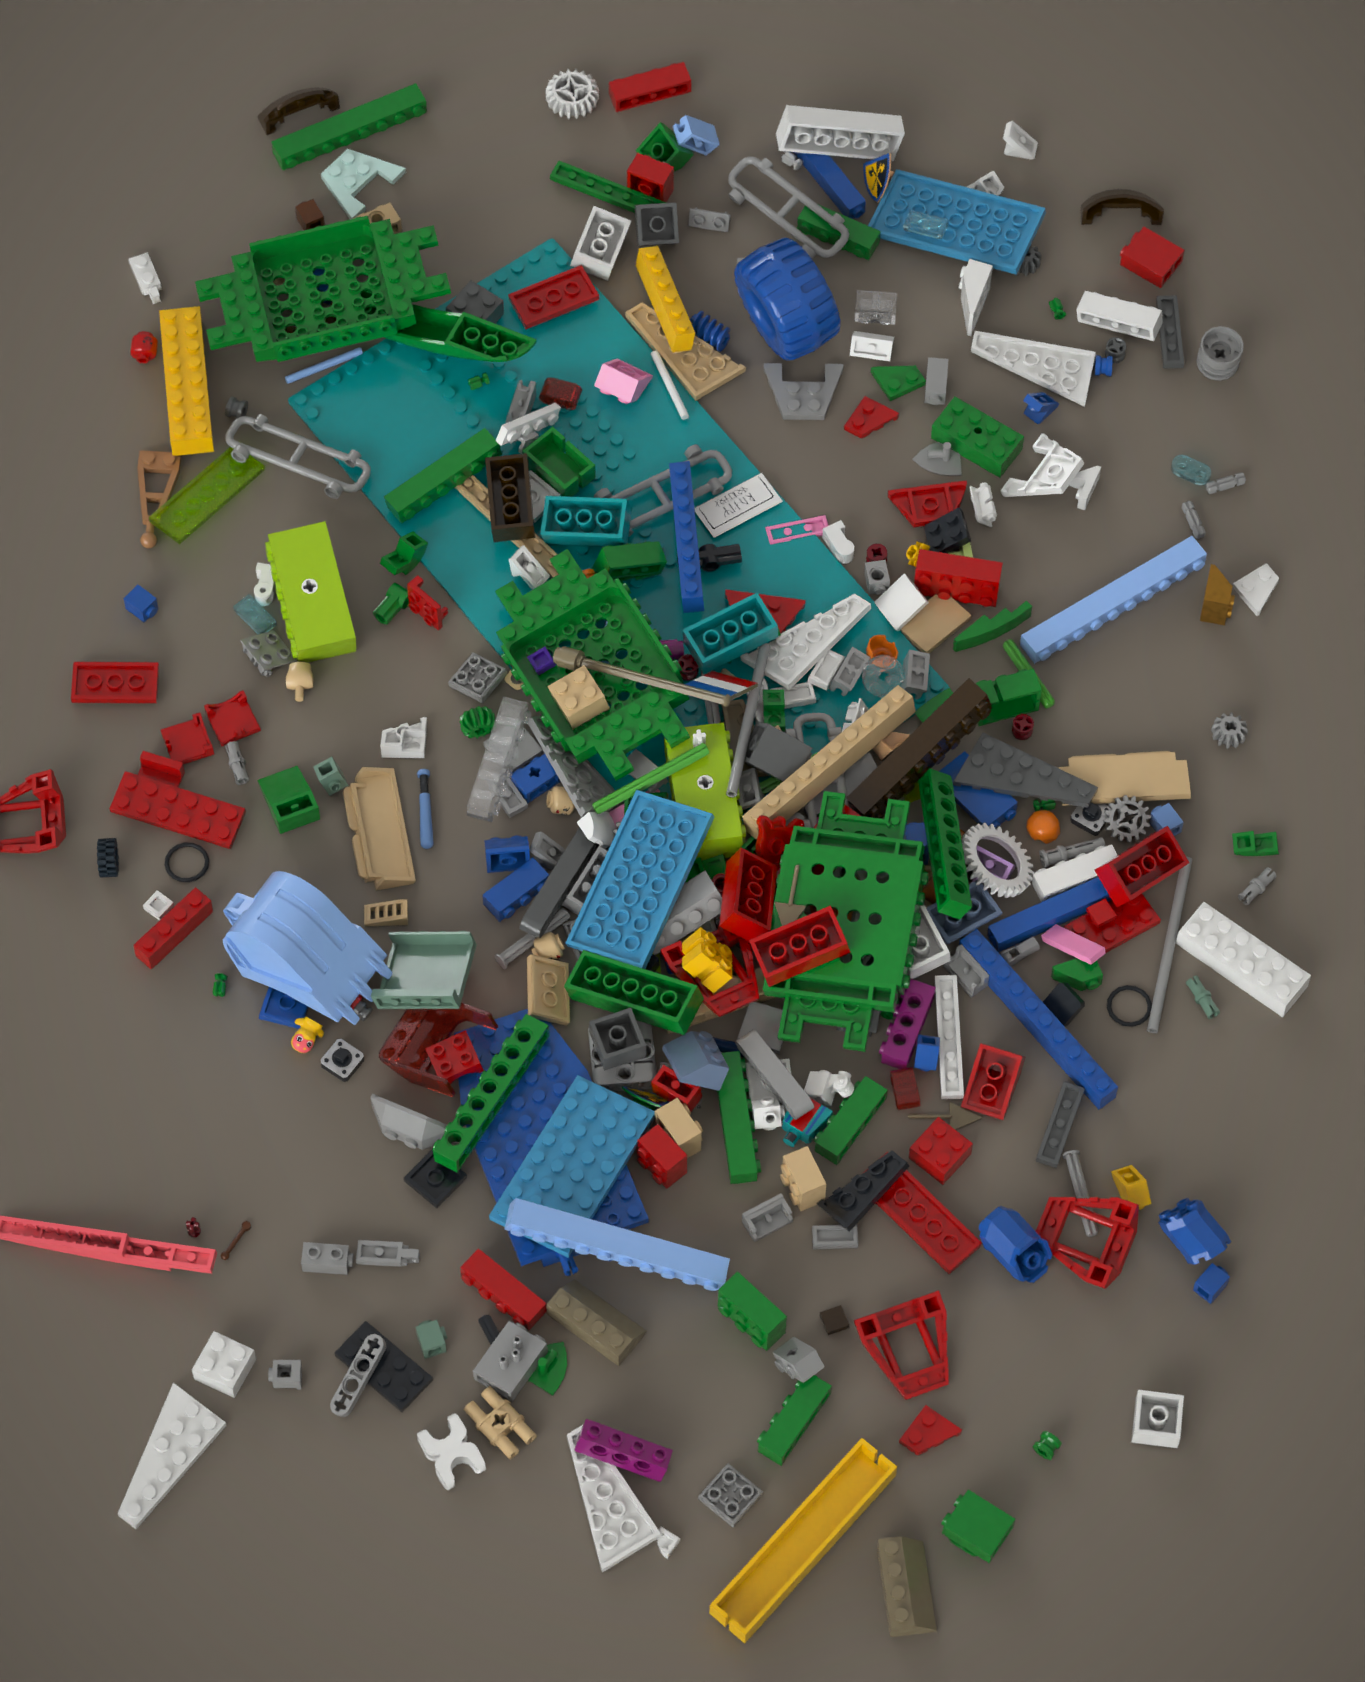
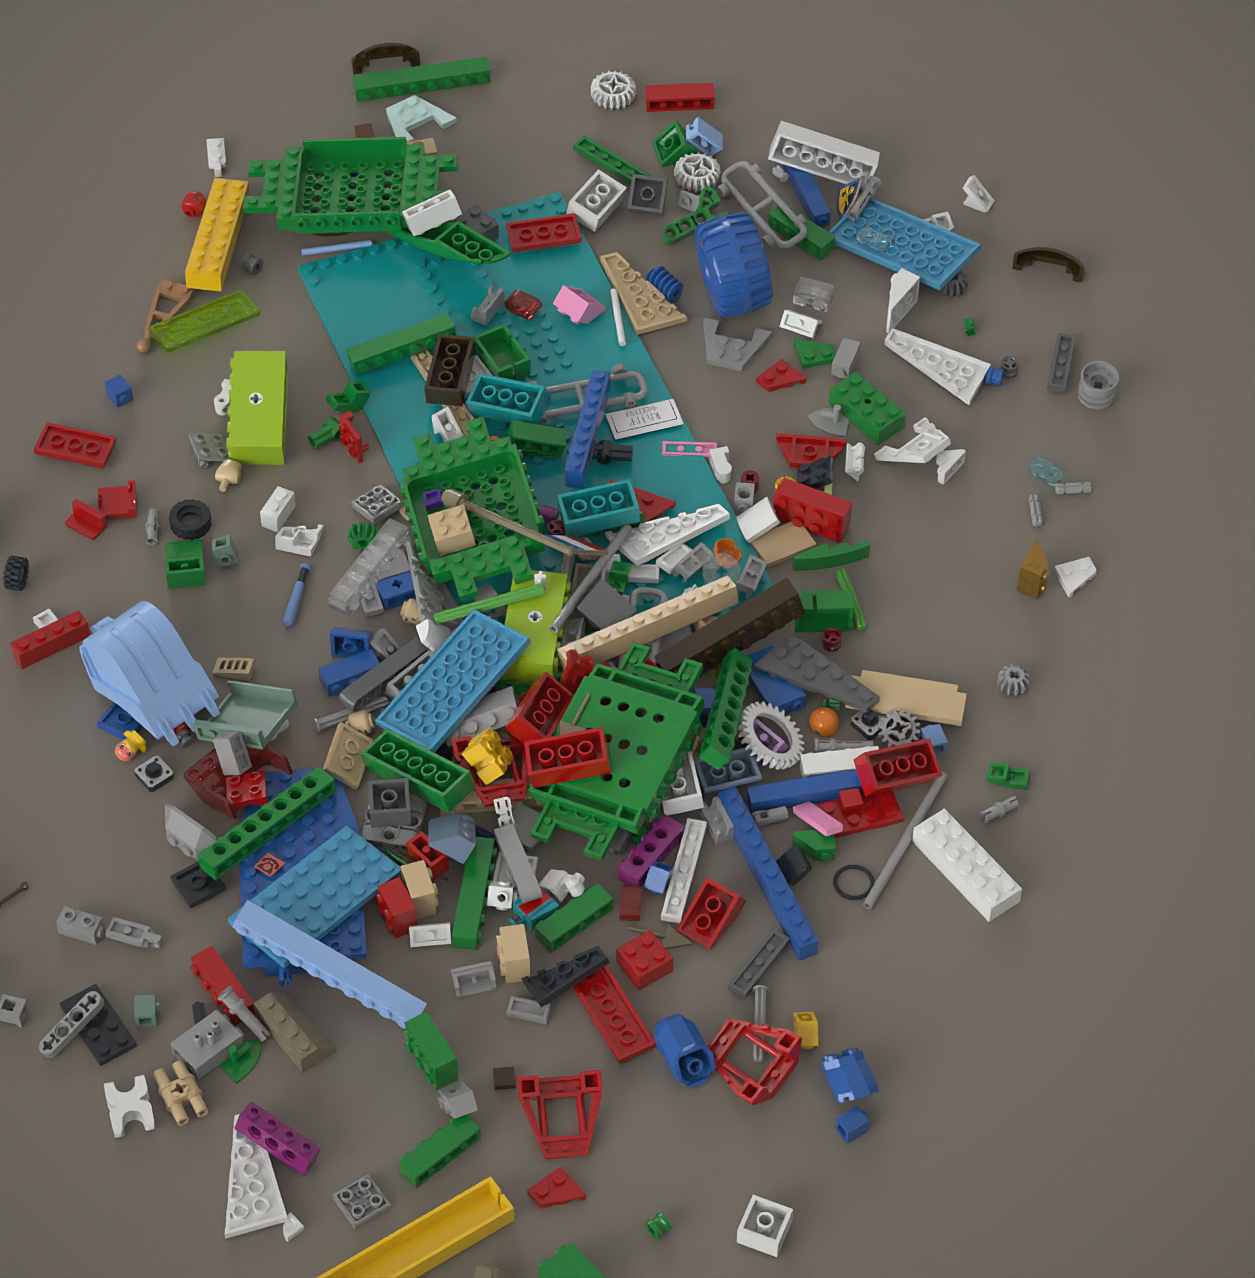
camera: 15 degrees right, 10 degrees down
(177, 810) = (90, 552): red plate -> none
(186, 844) = (83, 606): black piece -> none
(219, 986) = (72, 693): green piece -> none
(232, 719) = (160, 492): red piece -> none
(254, 615) = (209, 419): clear light blue plate -> none
(276, 760) = (192, 531): none -> black tyre
(333, 488) = (308, 336): light grey bar -> none
(370, 710) = (277, 509): none -> white brick
(380, 829) = (253, 602): tan slope -> none
(426, 1020) = (232, 753): none -> light grey hinge
(431, 308) = (432, 213): none -> white brick
(476, 382) = (457, 282): green piece -> none
(508, 1140) = (269, 864): none -> clear red sticker
(524, 428) = (481, 320): white plate -> none
(532, 1313) = (238, 1007): none -> light grey pin
(651, 177) = (654, 159): red brick -> none
(665, 299) = (635, 251): yellow brick -> none
(704, 1176) = (430, 934): none -> white plate
(710, 186) = (697, 172): none -> white gear
(737, 243) = (702, 210): none -> green beam
(743, 1024) = (503, 810): none -> white piece
(899, 167) = (867, 192): none -> light grey pin
(1039, 406) = (929, 396): blue slope -> none
(1113, 600) = (943, 556): light blue brick -> none
(1119, 315) = (1020, 340): white brick -> none
(1151, 257) = (1064, 303): red brick -> none
(1202, 997) = (921, 888): sand green pin -> none

